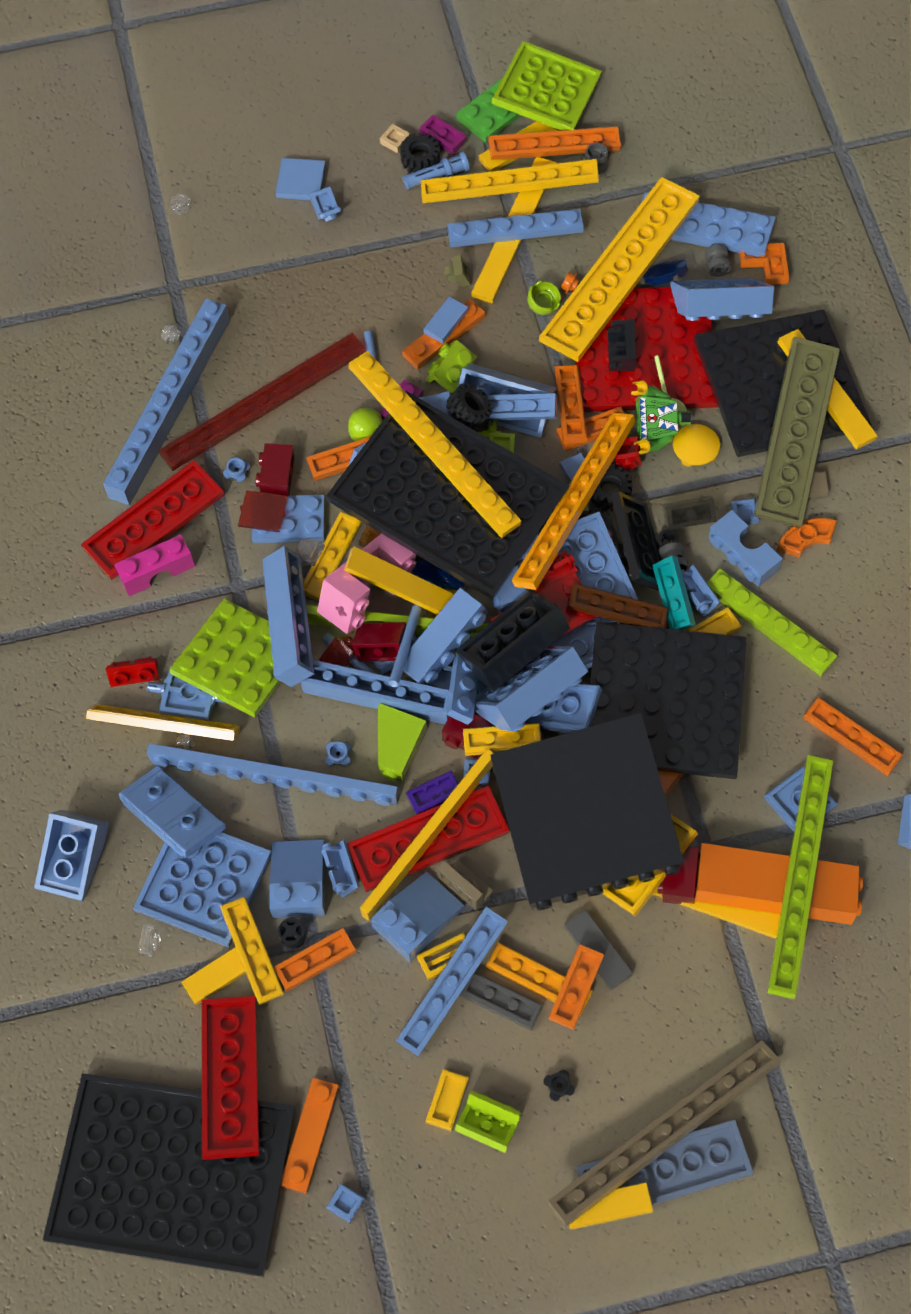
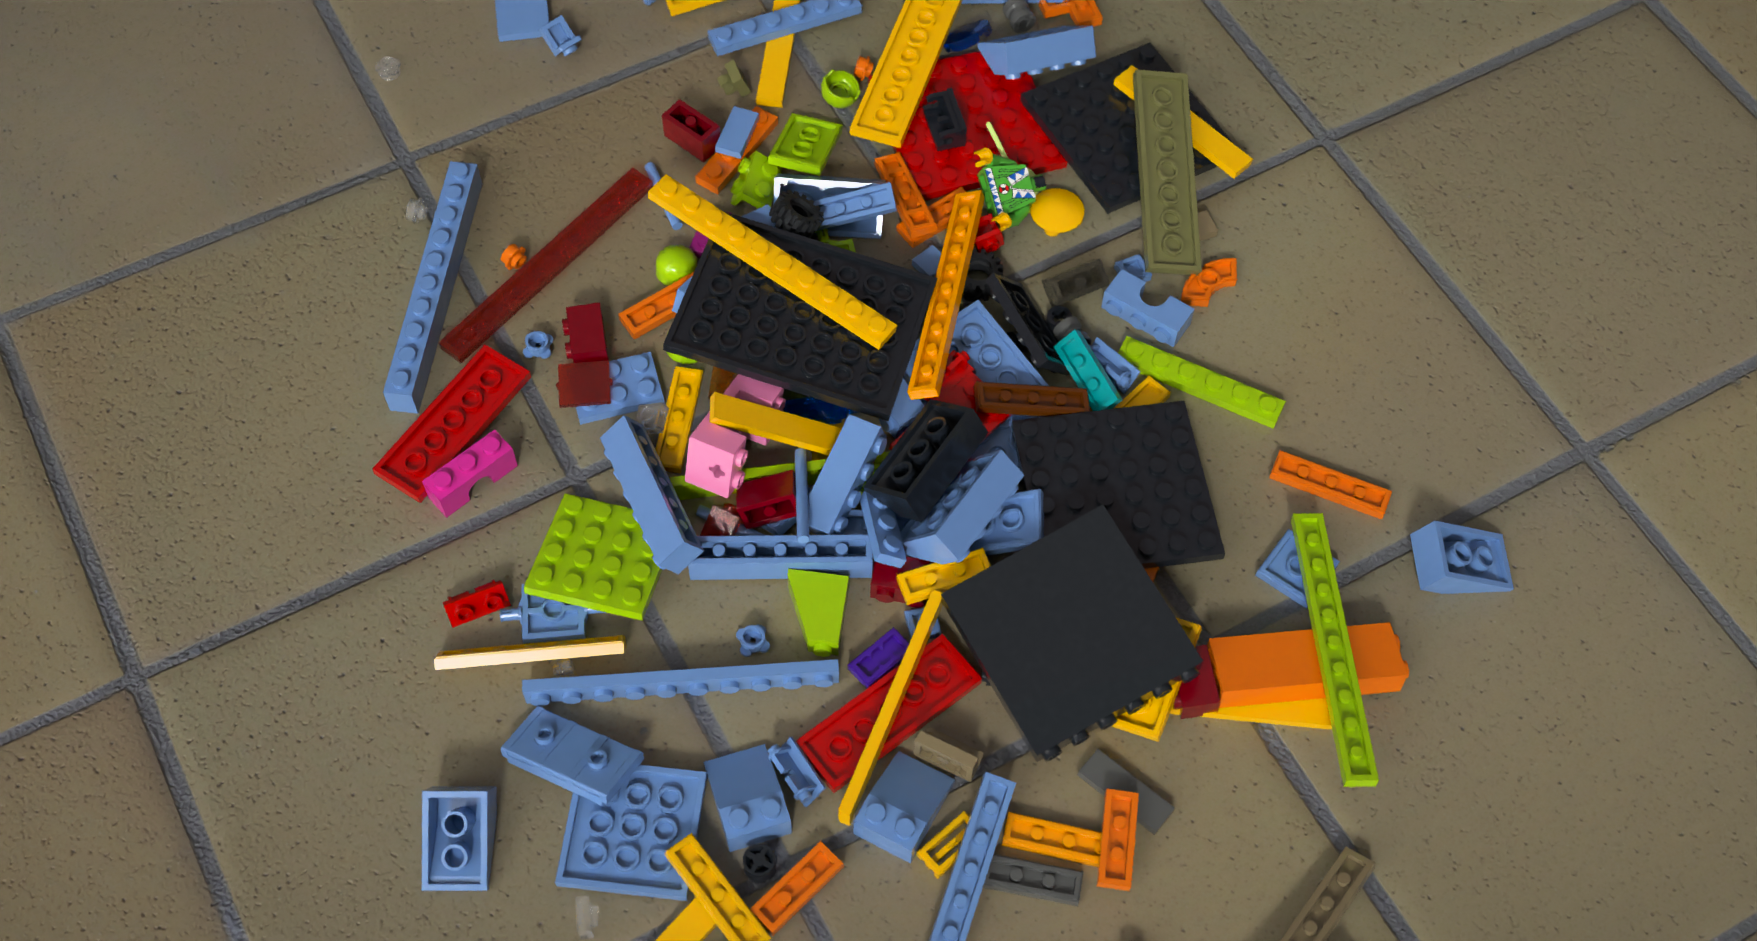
camera: 20 degrees left, 5 degrees down
(237, 389) = (514, 257): none -> orange plate
(408, 310) = (691, 130): none -> dark red brick
(500, 342) = (805, 144): none -> lime tile

